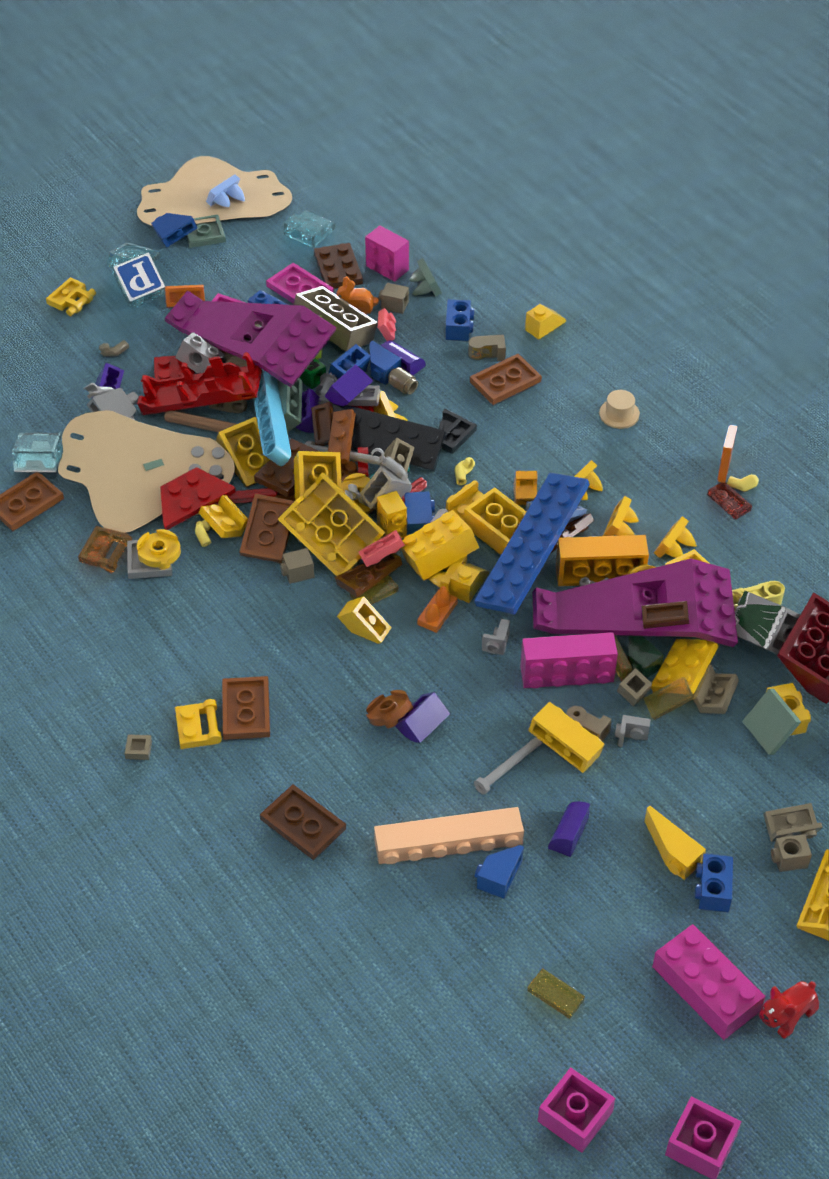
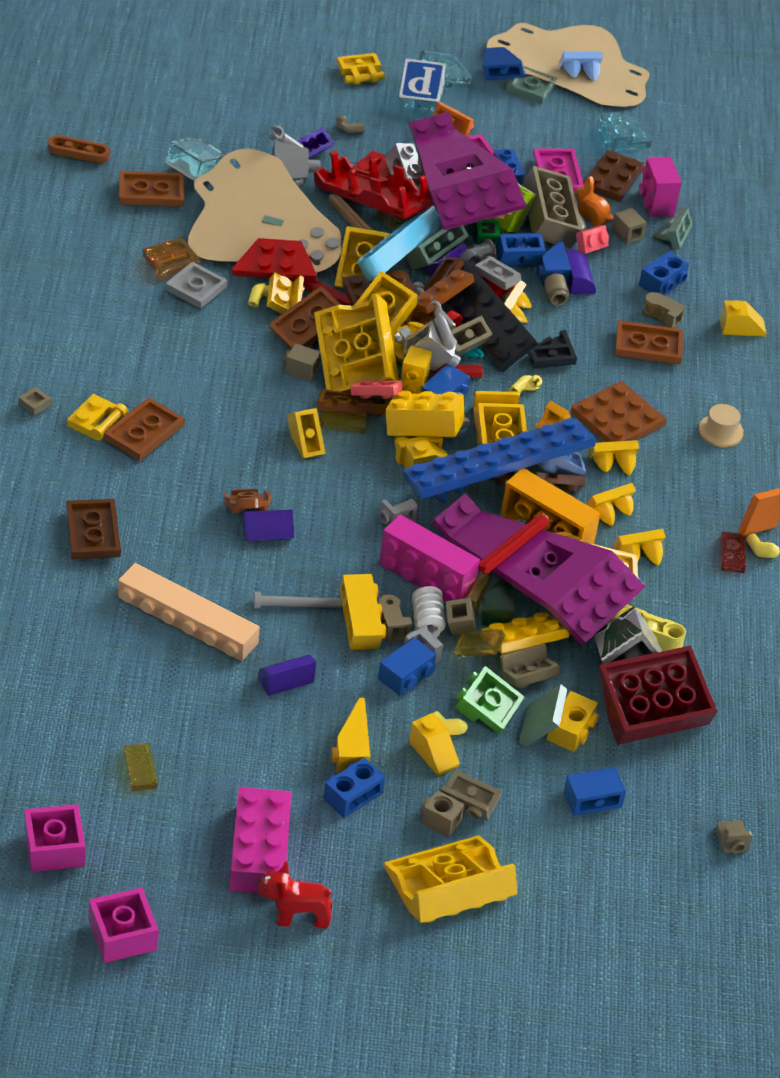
camera: 35 degrees right, 5 degrees down
(158, 558) = (215, 282): yellow plate -> none
(348, 386) = (489, 255): dark purple brick -> none
(437, 610) = (378, 465): orange tile -> none
(499, 871) = (198, 660): blue slope -> none
(546, 449) = (618, 414): none -> dark orange plate
(605, 701) = (429, 609): none -> white piece
(616, 607) = (513, 543): none -> red axle
(641, 755) = (407, 666): none -> blue brick
(665, 614) = (540, 576): reddish brown tile -> none
(714, 781) = (454, 726): none -> light yellow arm
(719, 738) = (488, 699): none -> bright green plate
(726, 803) = (434, 744): none -> yellow slope

